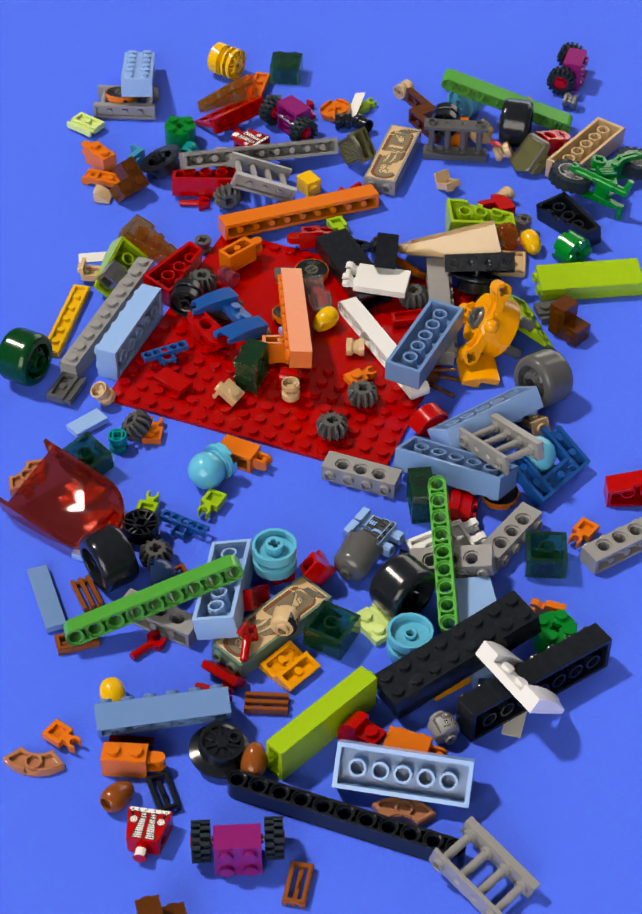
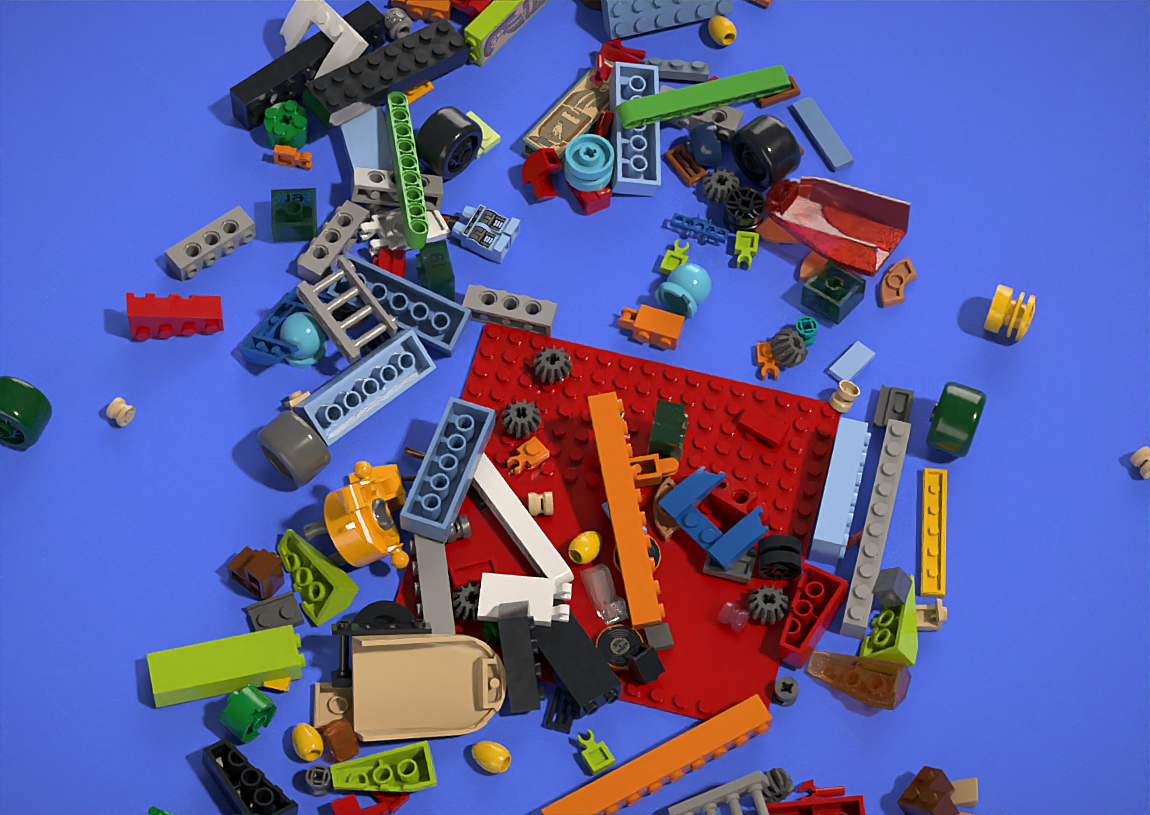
camera: 170 degrees right, 15 degrees up
(92, 257) = (936, 664): white sticker -> none
(154, 355) = (788, 459): blue piece -> none
(168, 664) = (680, 69): none -> sand blue plate
(228, 391) = (695, 407): tan bracket -> none
(240, 253) = (725, 653): orange brick -> none
(268, 701) = (571, 39): dark orange tile -> none
(284, 620) = (565, 94): tan head -> none
(289, 666) = (552, 79): light orange slope -> none
(297, 253) = (644, 663): none -> black brick
(306, 237) = (648, 705): red piece -> none
(332, 630) = (516, 107): clear green brick -> none
(357, 555) = (501, 190): dark grey cylinder -> none
(406, 634) = (432, 95): medium azure wheel -> none
(407, 227) = (491, 756): none -> yellow animal
(426, 418) = (431, 390): red brick -> none
(582, 531) = (249, 261): orange plate -> none

